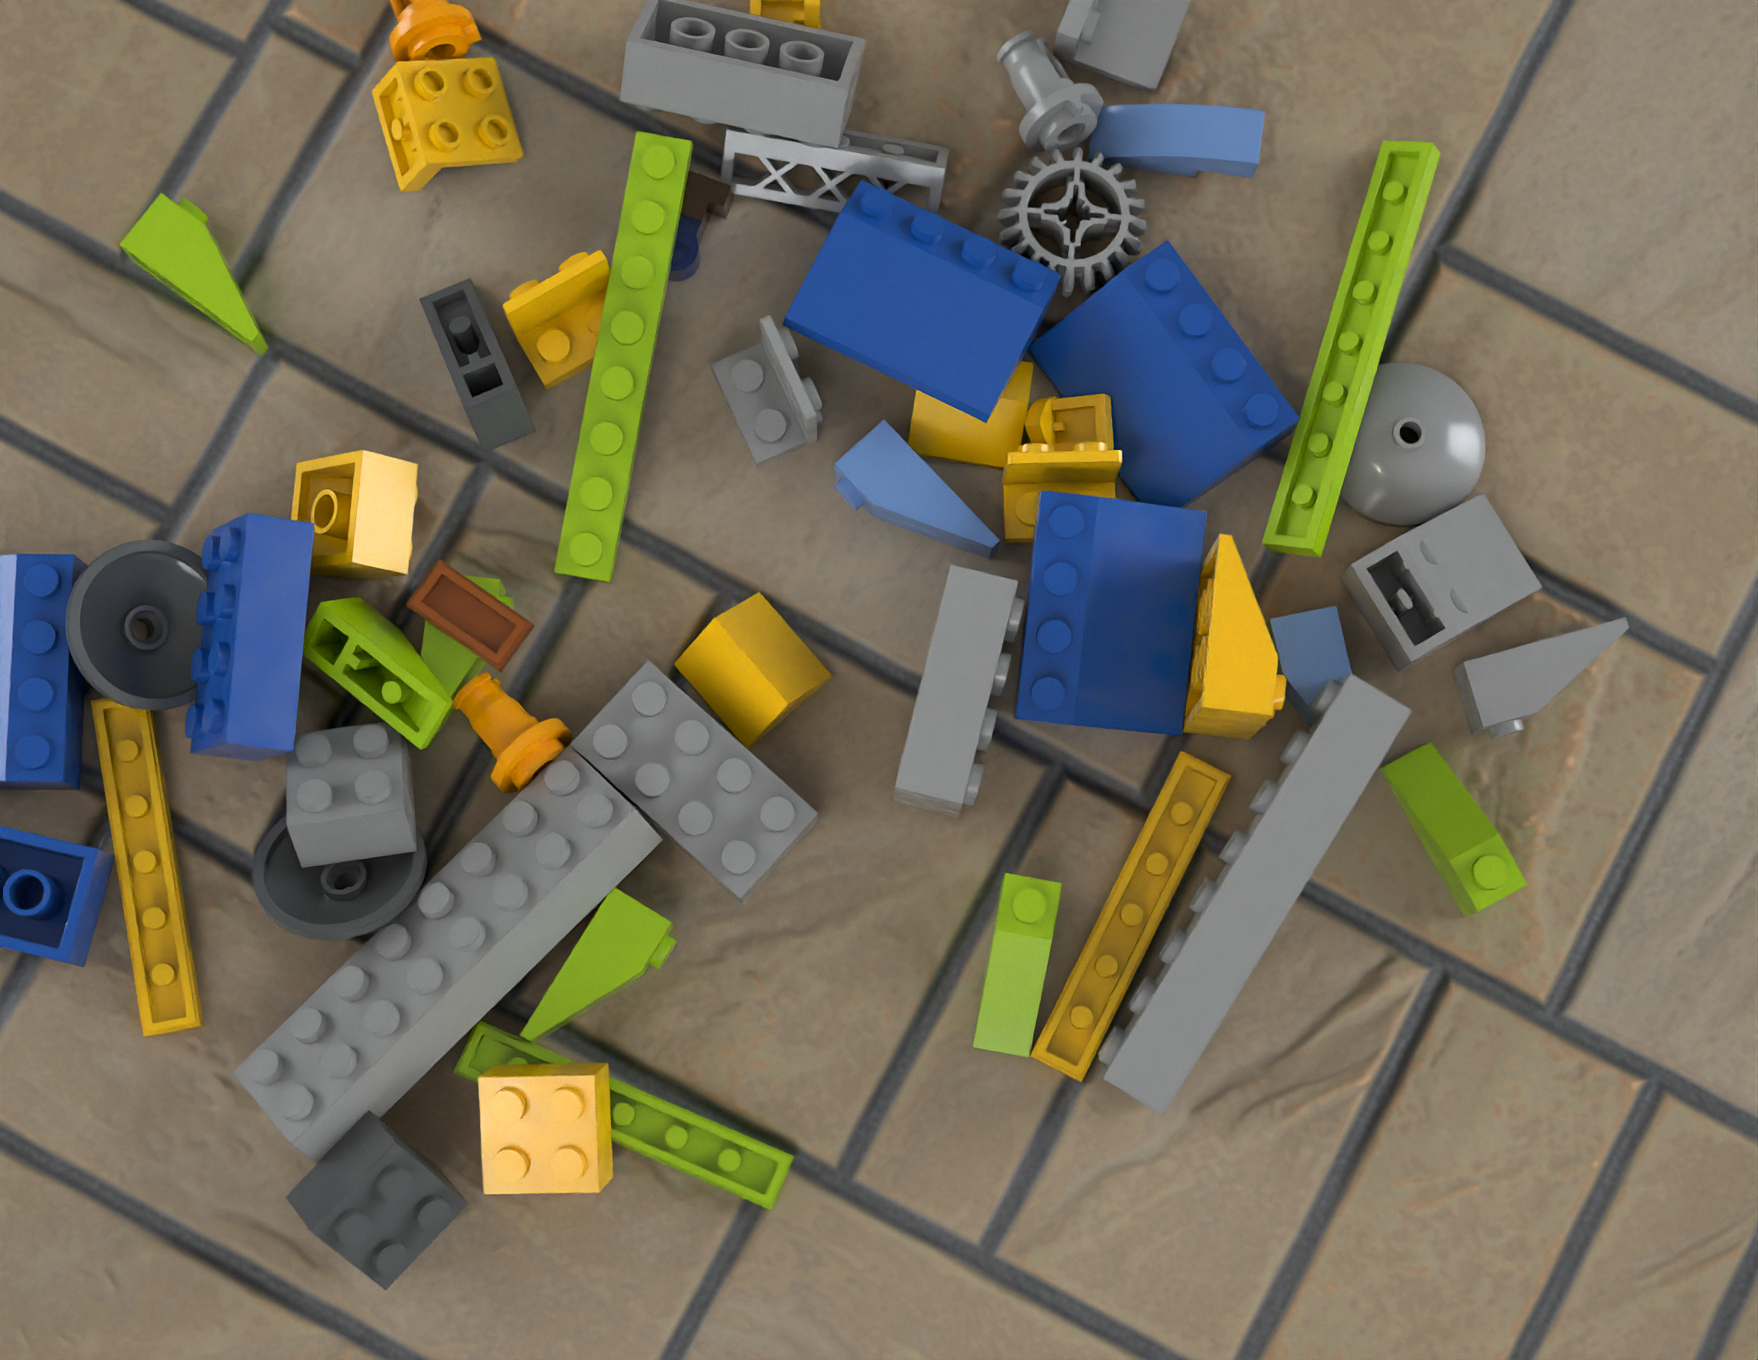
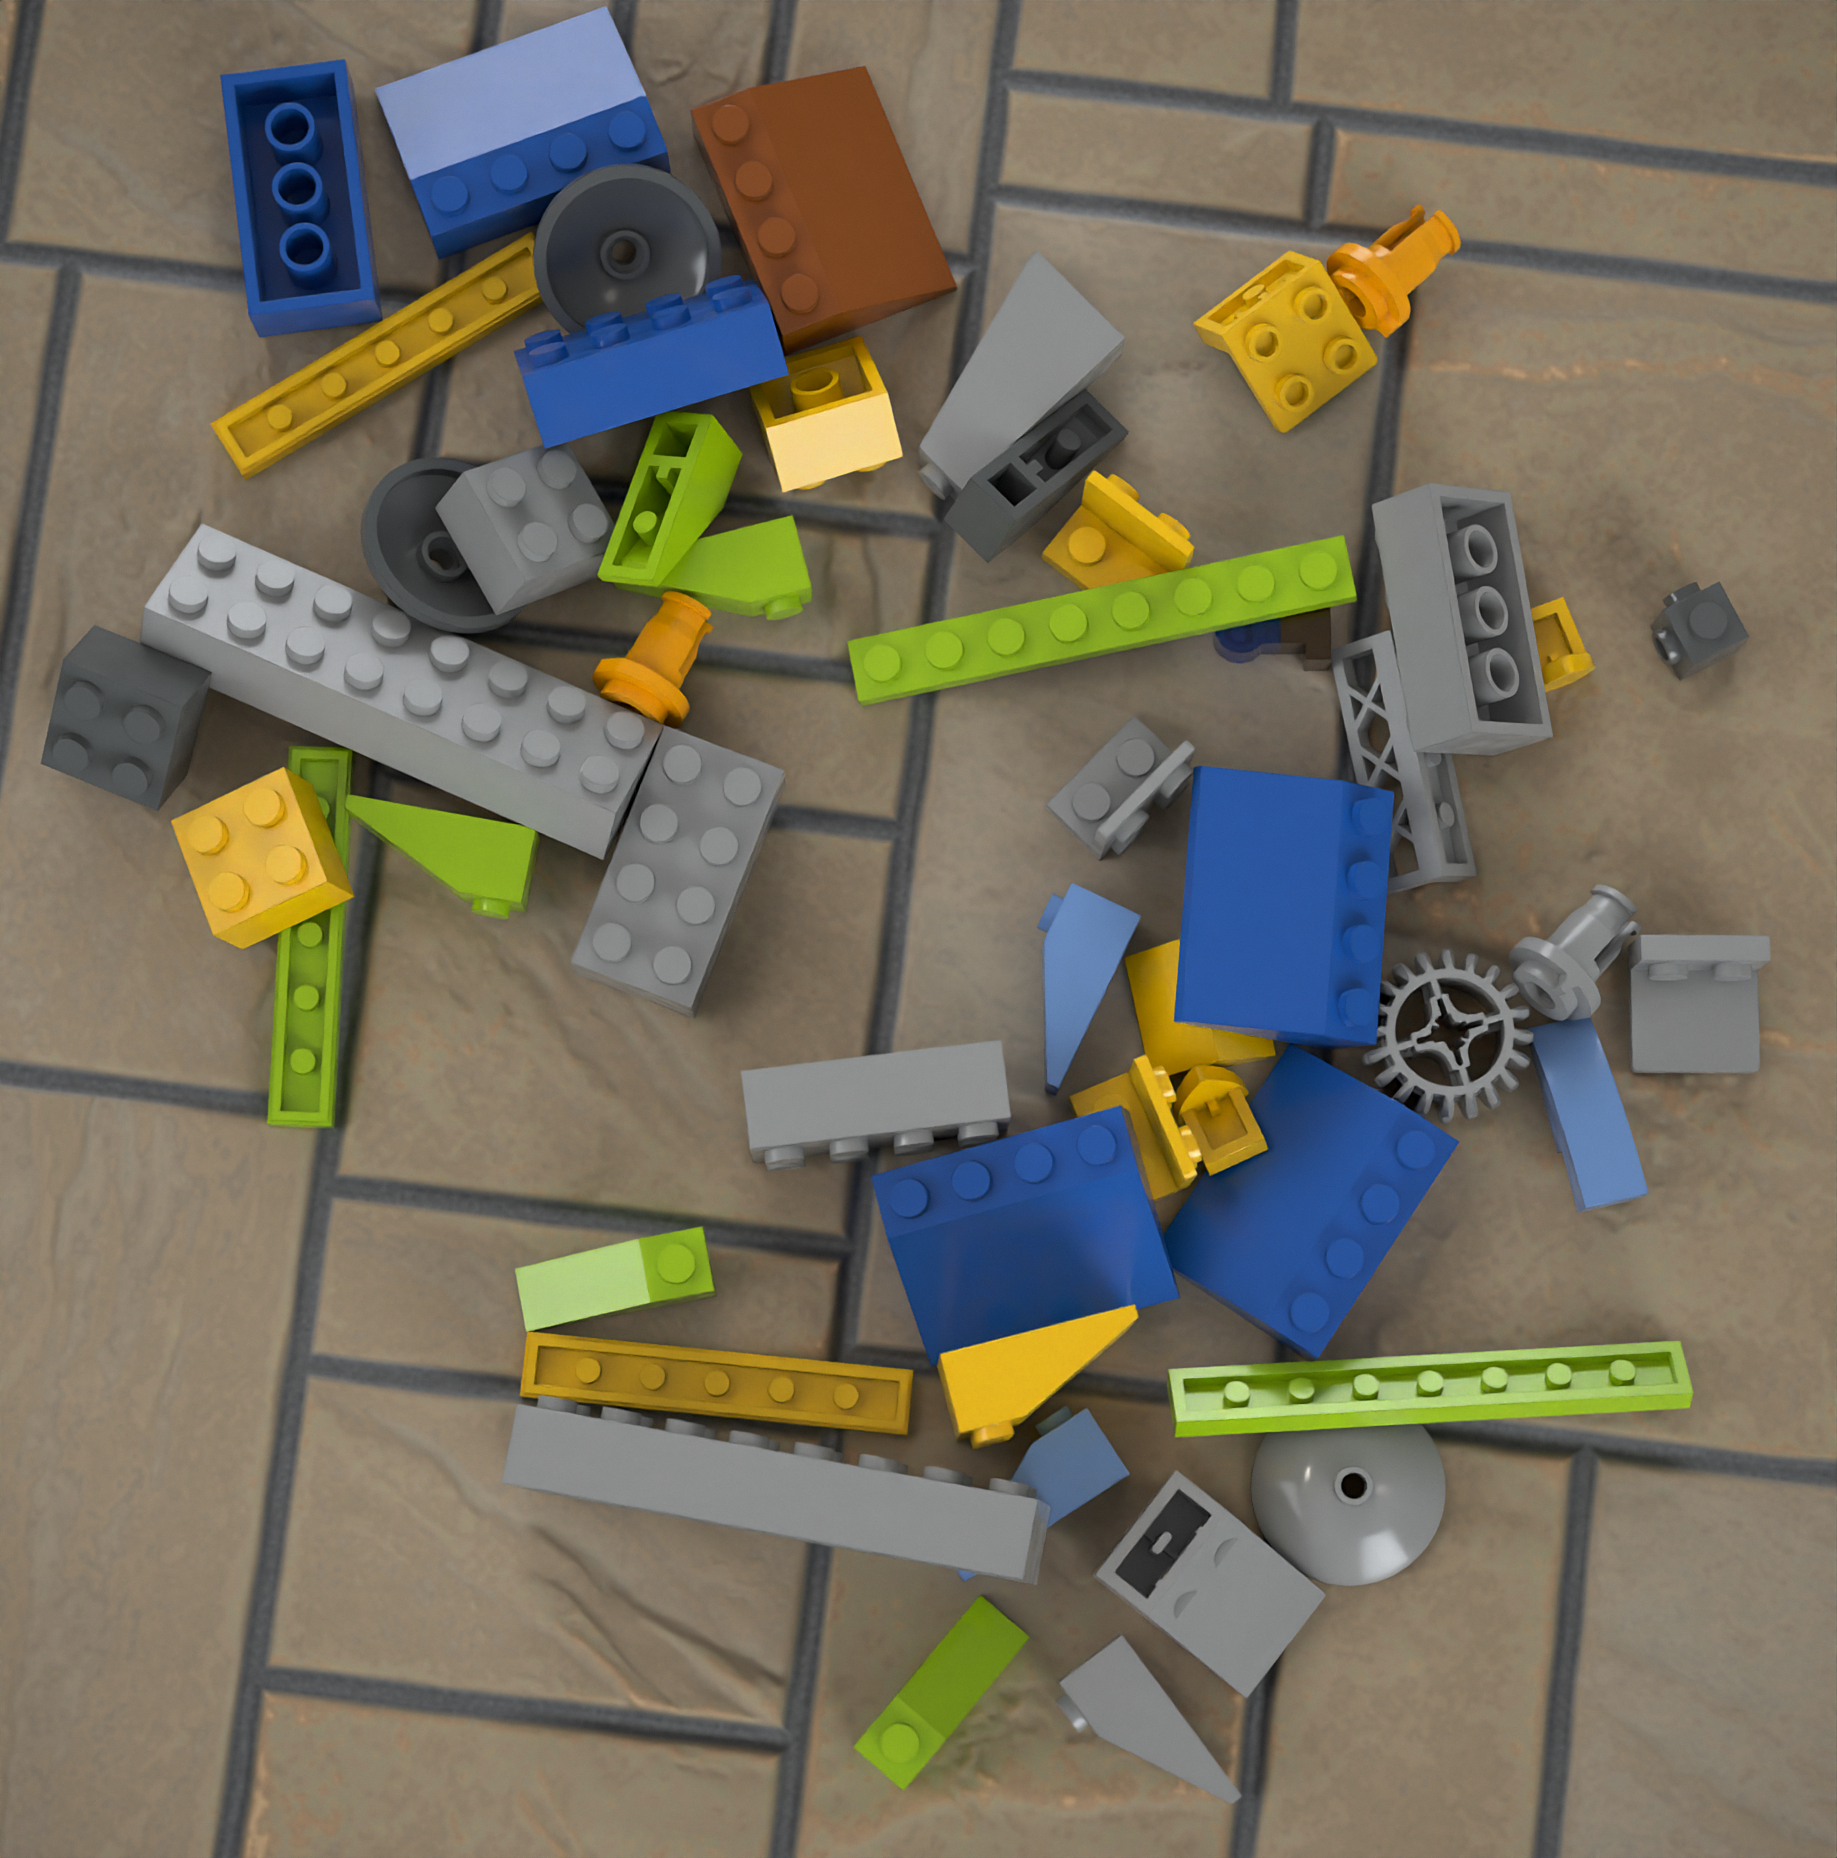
camera: 70 degrees right, 0 degrees up
(168, 450) = (821, 204): none -> dark orange slope
(184, 256) = (1025, 147): lime slope -> none
(385, 339) = (1027, 366): none -> light grey slope
(470, 615) = (759, 571): dark orange tile -> none
(751, 669) = (827, 886): yellow slope -> none

